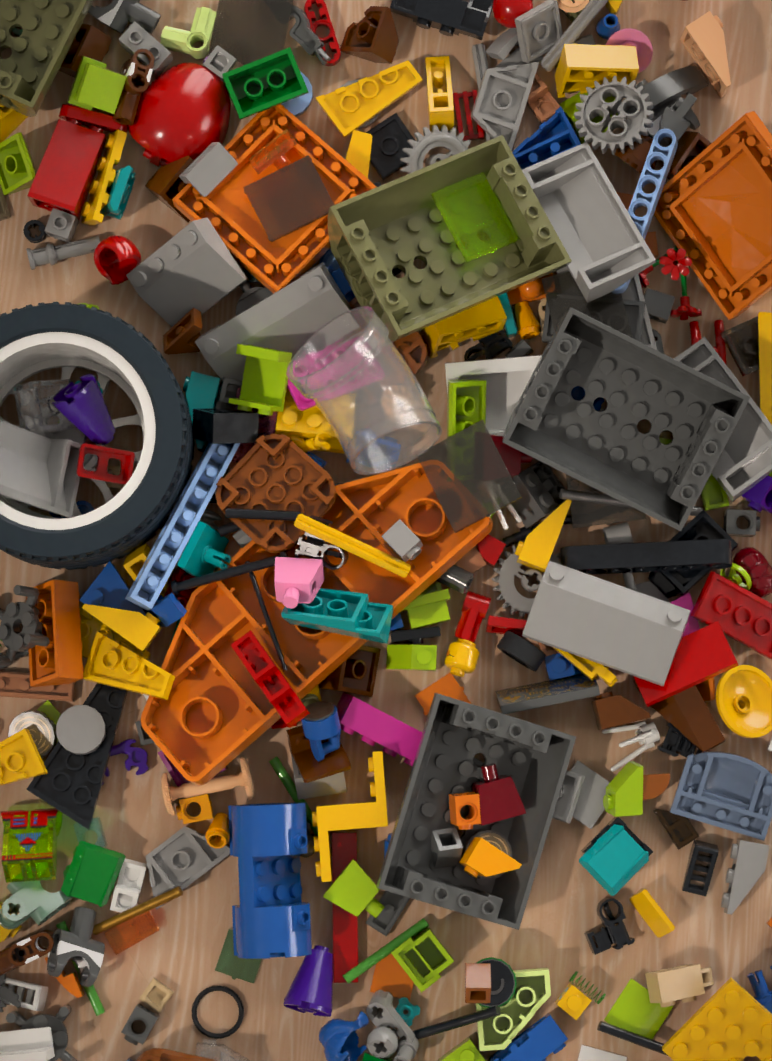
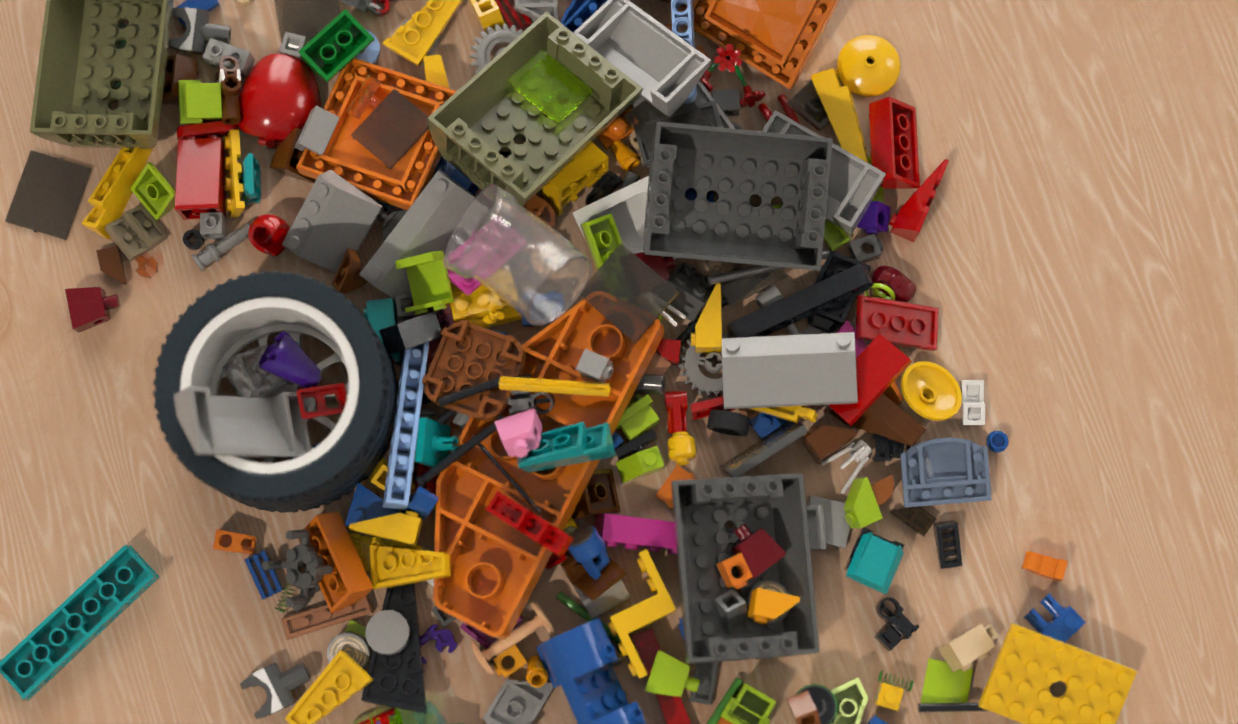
camera: 15 degrees left, 5 degrees down
(183, 40) = (267, 27): yellowish green piece -> none
(387, 146) = (456, 59): black tile -> none
(510, 325) = (613, 164): teal tile -> none
(651, 913) = (923, 597): yellow slope -> none
(747, 868) = (986, 528): light grey slope -> none

